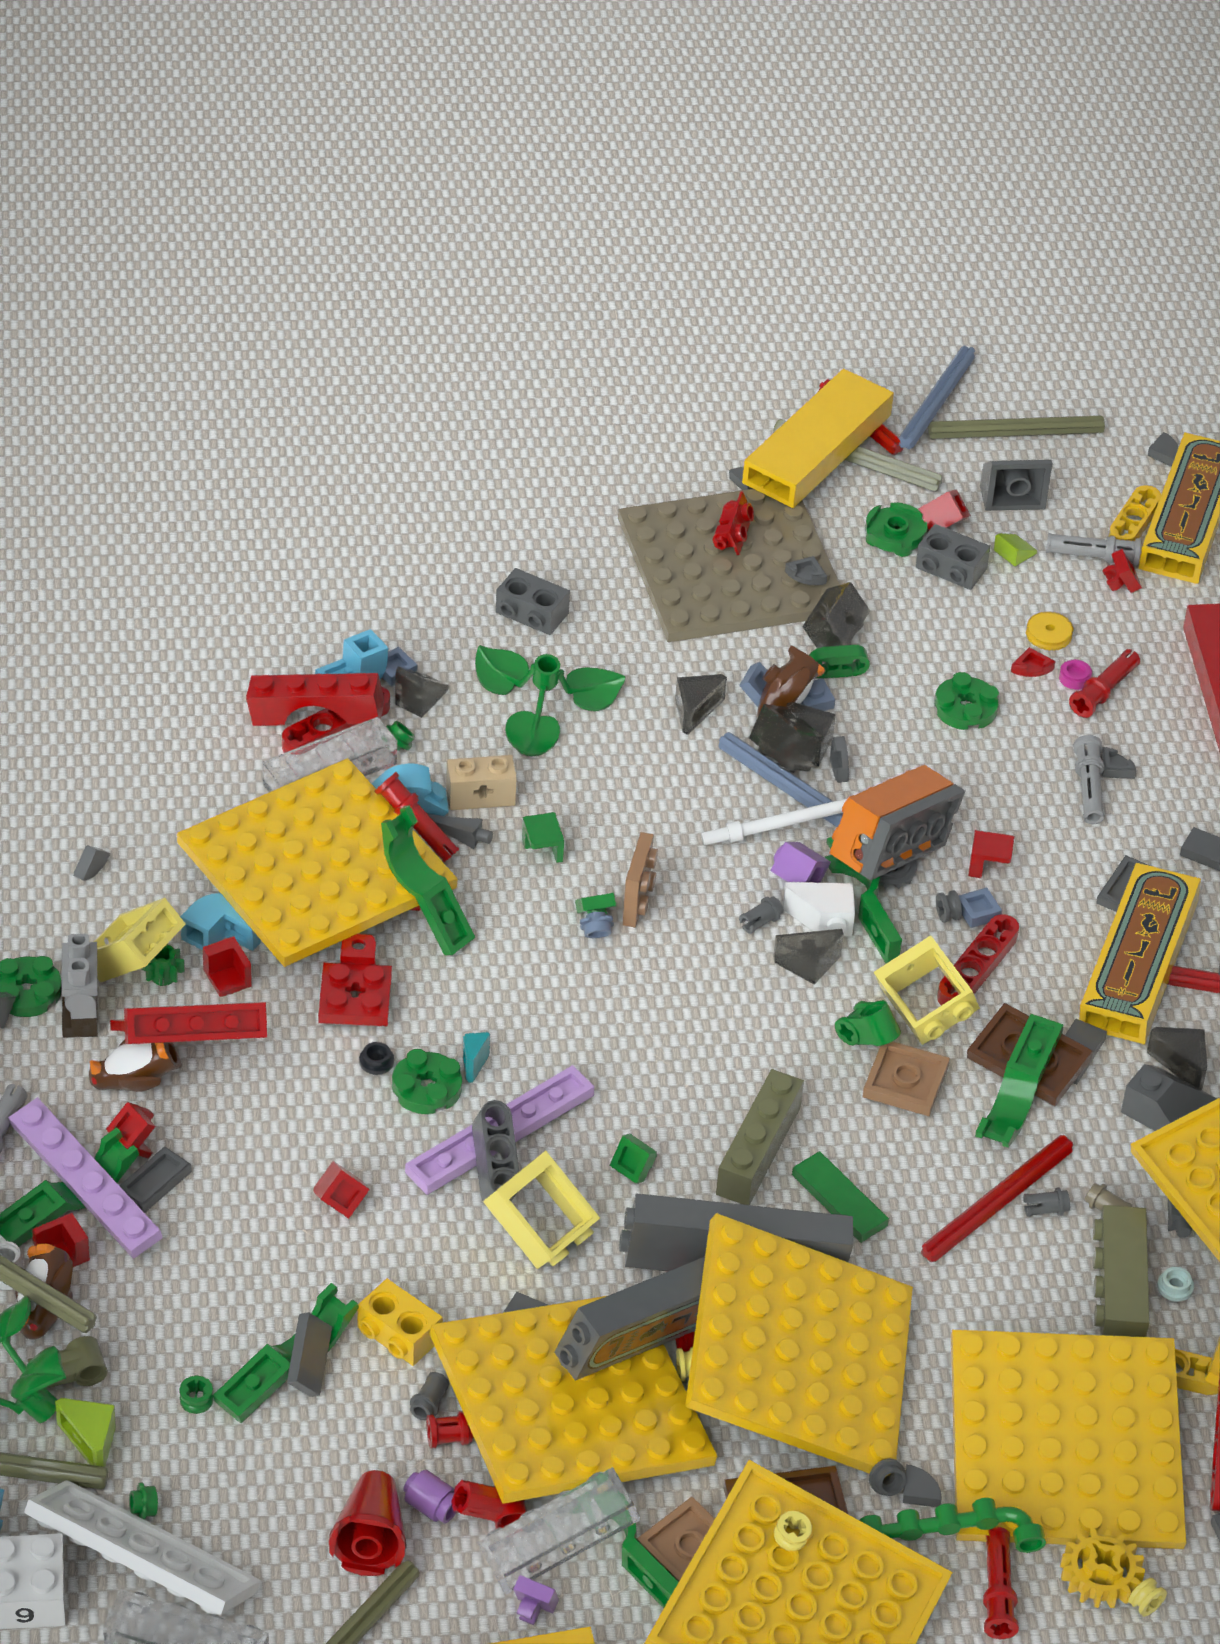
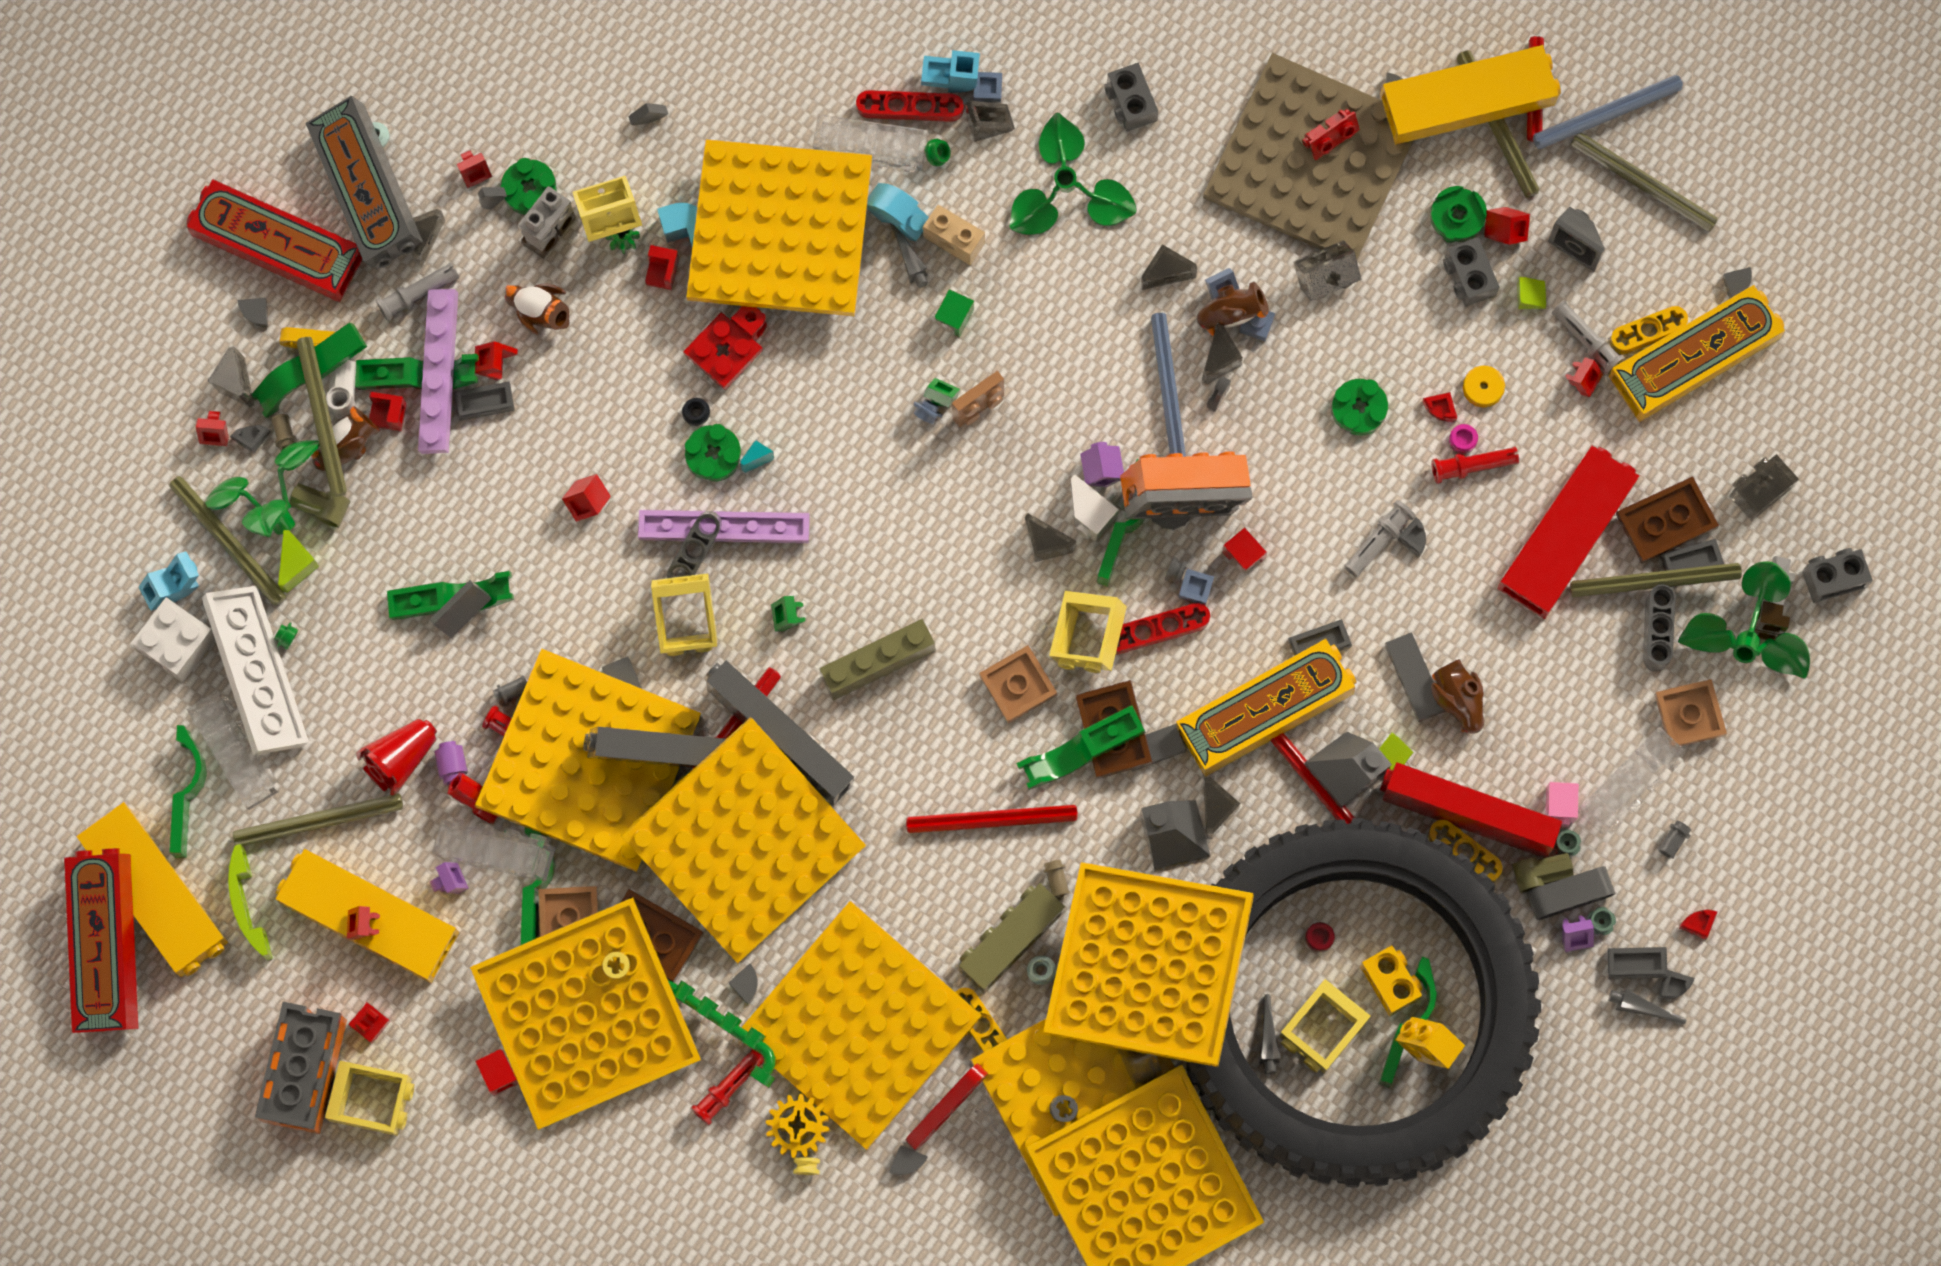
camera: 45 degrees right, 30 degrees up
(193, 1023) = (585, 317): red fence -> none
(196, 1405) = (373, 576): green bush -> none
(351, 695) = (916, 96): red arch -> none
(397, 1321) = (542, 623): yellow brick -> none
(400, 796) = (874, 227): red pin -> none
(428, 887) = (823, 307): green piece -> none
(735, 830) = (1093, 400): white bar -> none
(767, 911) = (1045, 482): dark grey pin -> none
(786, 738) = (1190, 352): clear smoke brick -> none
(806, 571) = (1347, 212): dark grey tile -> none
(839, 660) = (1299, 307): green beam -> none
(840, 1195) = (893, 740): green tile -> none
(868, 1025) = (1027, 629): green piece -> none
(892, 1483) = (728, 964): dark grey plate -> none
(1047, 1202) = (1017, 847): dark grey pin -> none

